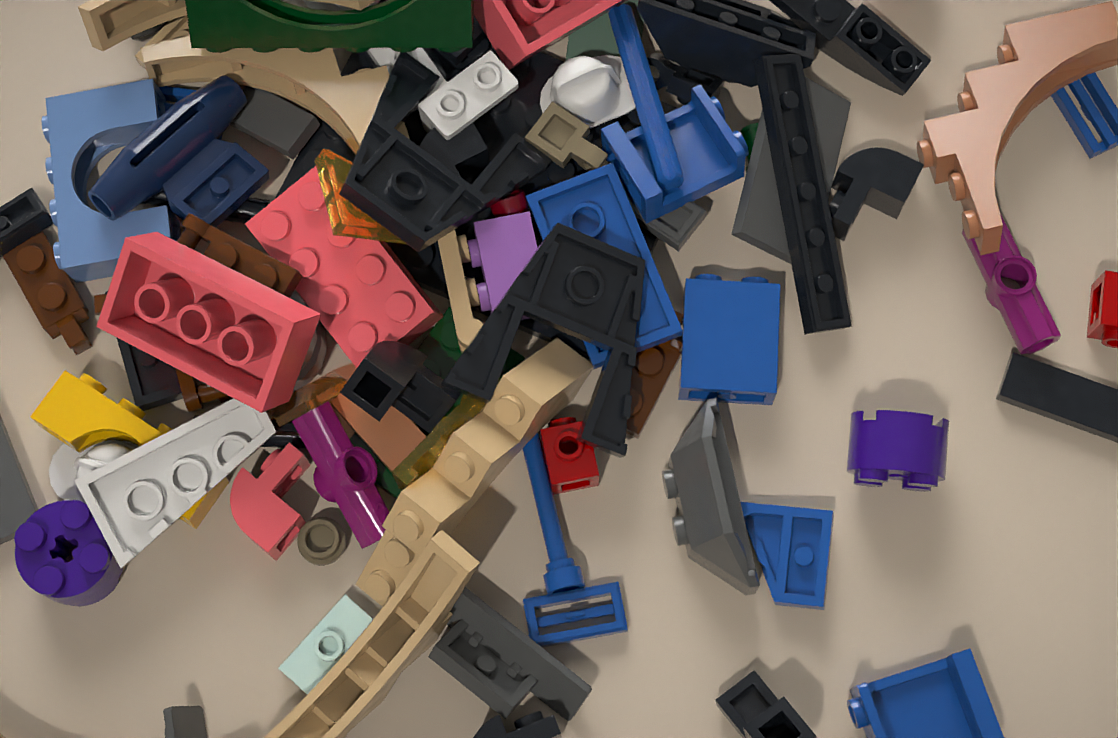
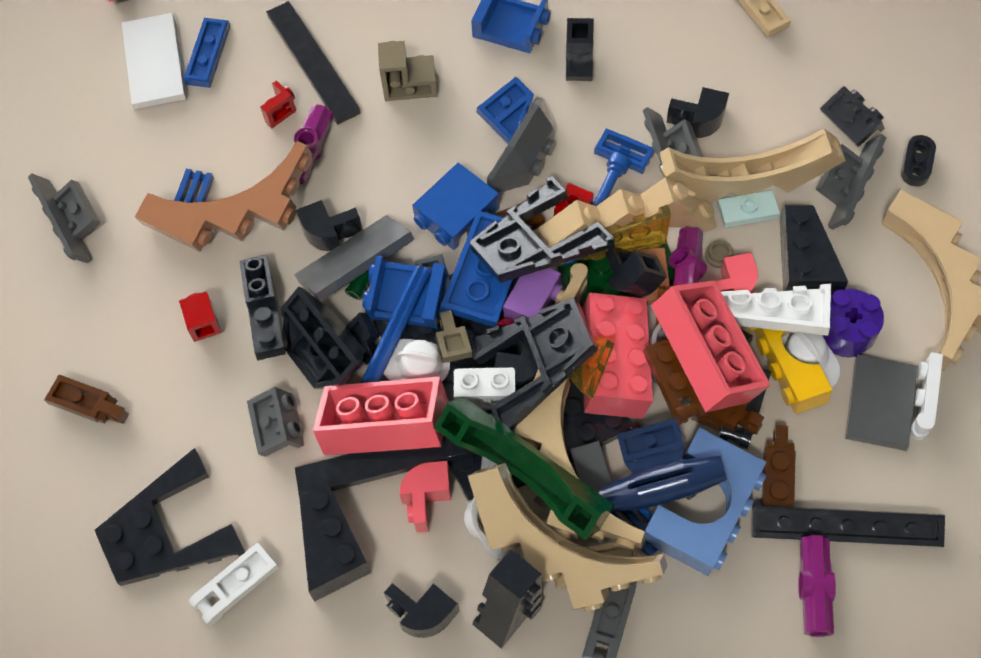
camera: 140 degrees left, 10 degrees down
(194, 617) = (807, 251): none -> black wedge
(802, 193) = (361, 238): black tile -> none
(898, 448) = (427, 107): dark purple brick -> none
(990, 479) = (403, 75): none -> dark tan brick

